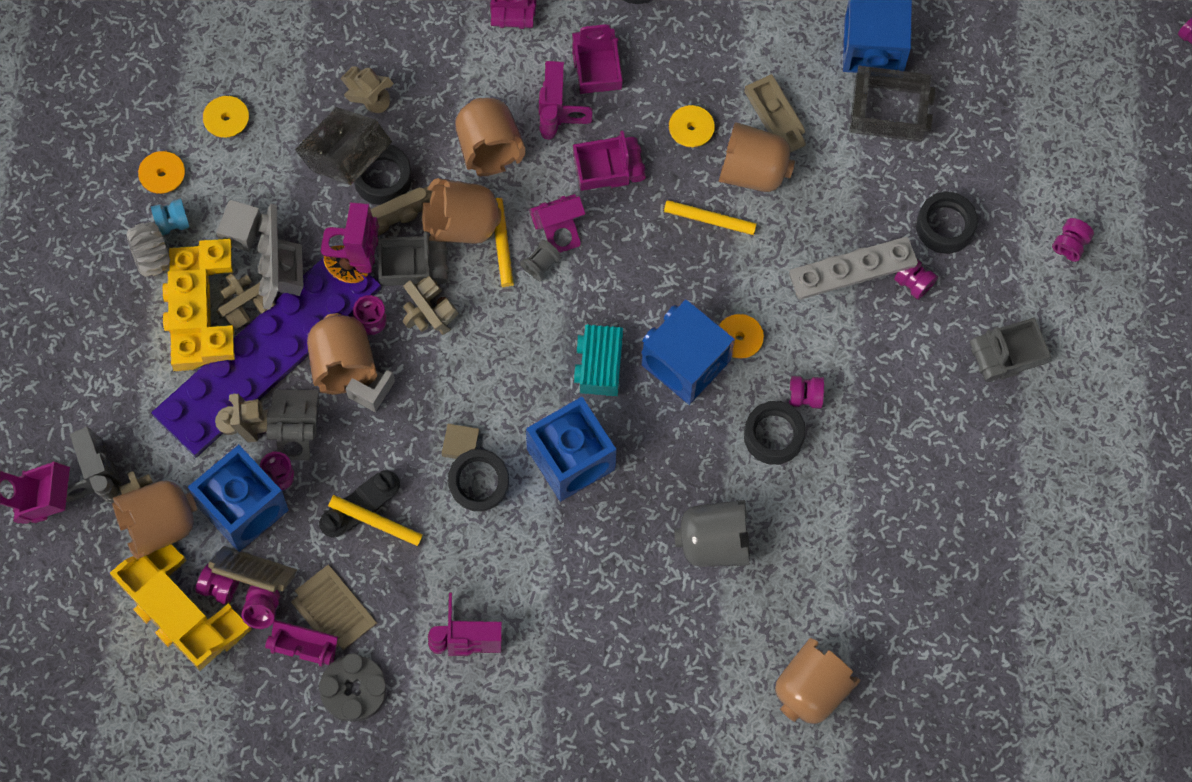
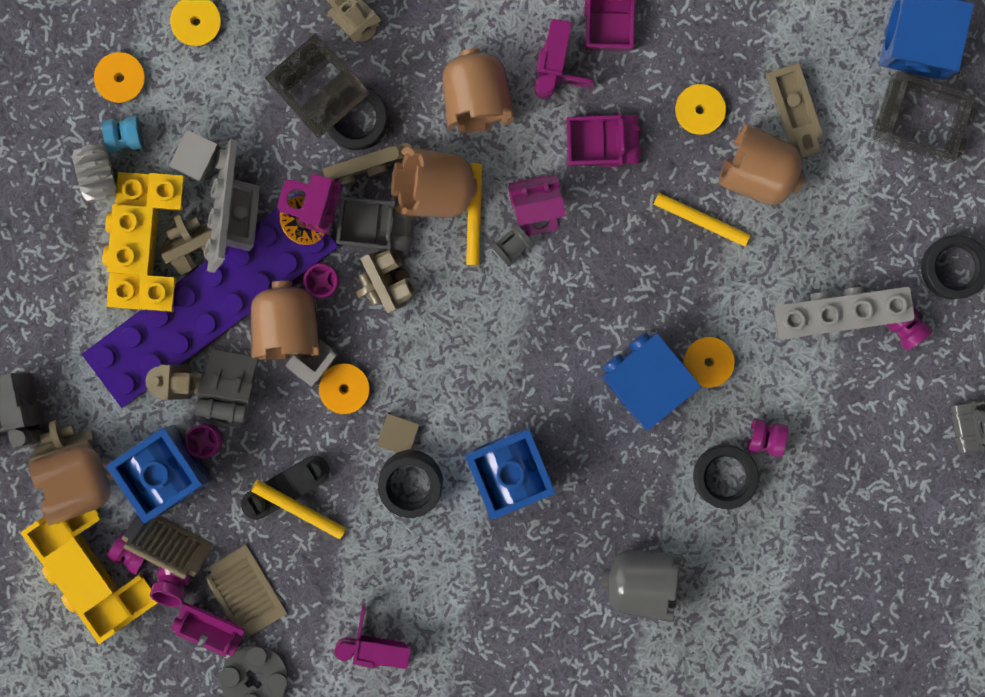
camera: 10 degrees right, 20 degrees up
(399, 398) = (331, 392): none -> light orange piece
(600, 360) = (557, 369): teal brick -> none

